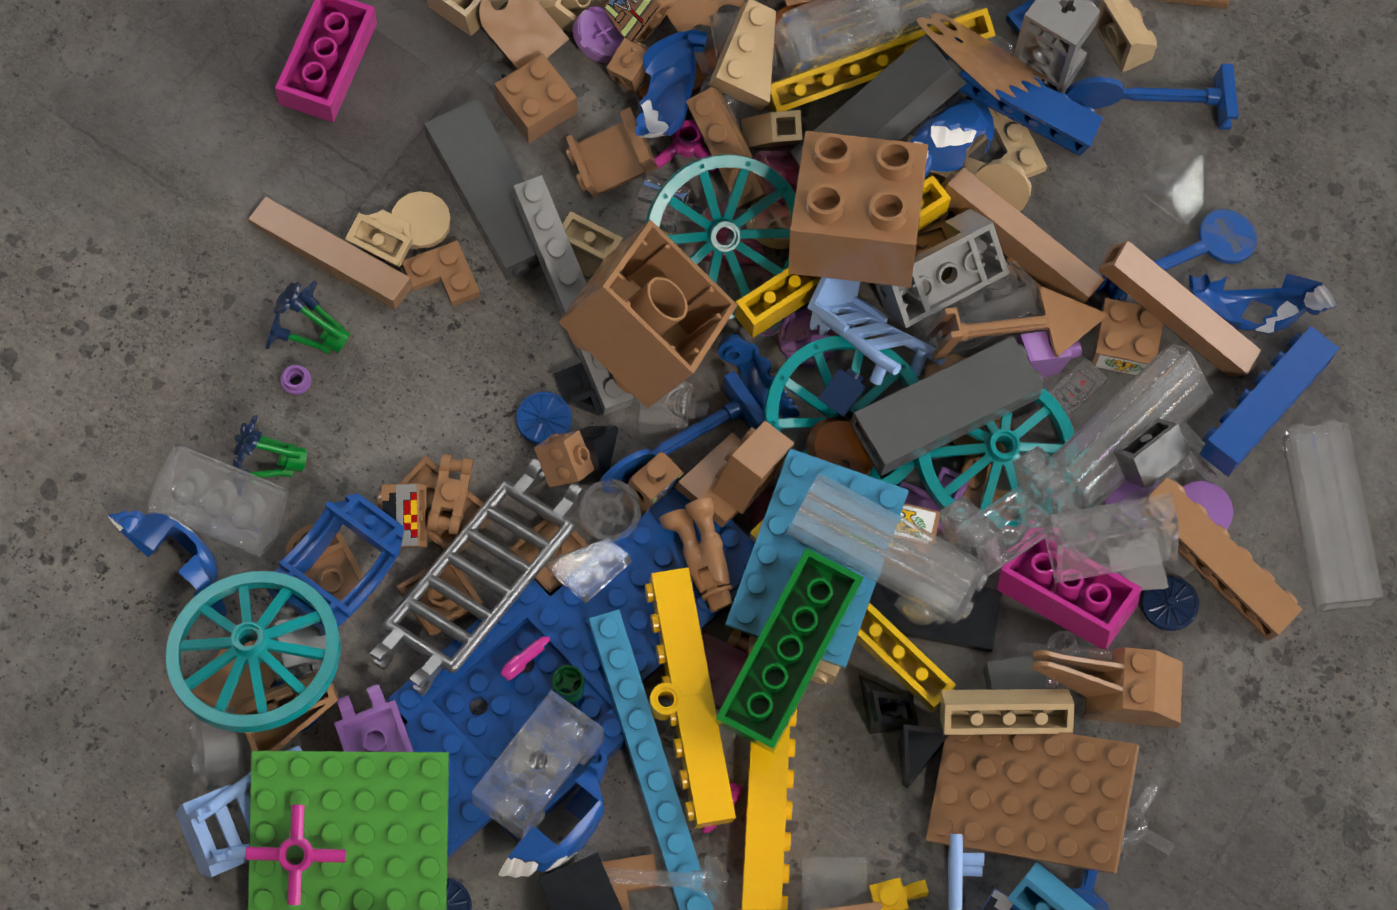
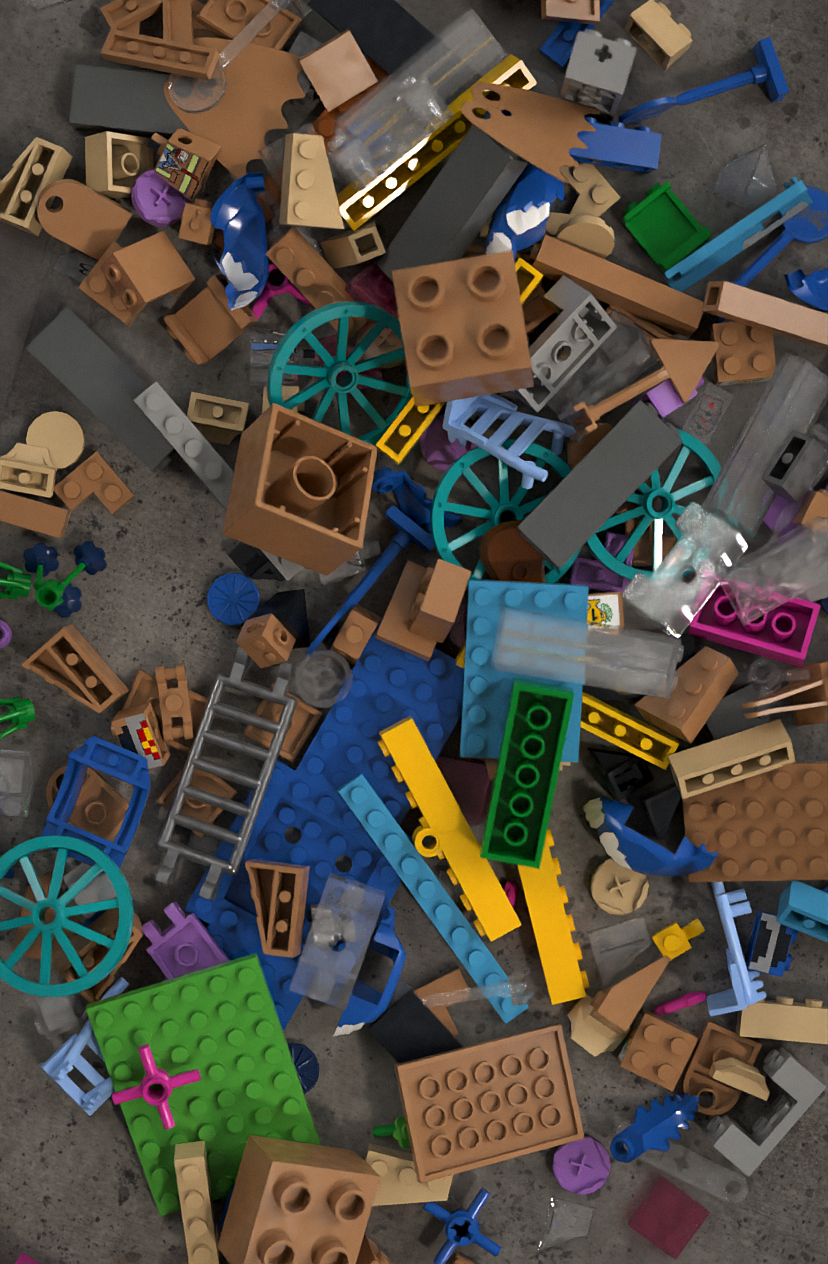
camera: 15 degrees left, 20 degrees up
(363, 429) = (77, 669): none -> medium nougat wedge
(366, 338) = (61, 595): none -> dark blue plant
(490, 713) = (280, 904): none -> medium nougat wedge
(518, 663) = (287, 845): dark pink piece -> none
(566, 86) = (147, 271): none -> medium nougat panel
(566, 678) = (335, 855): dark green wheel -> none
(589, 568) = (322, 737): clear wing -> none
(703, 558) = (421, 697): medium nougat piece -> none
(843, 391) = (499, 502): dark blue brick -> none
(850, 823) = (618, 888): none -> tan tile
(886, 784) = (638, 852): none -> blue animal
(981, 640) = (698, 691): none -> medium nougat wedge
(1082, 205) = (664, 227): none -> green panel
(1155, 226) = (738, 237): none -> dark azure piece

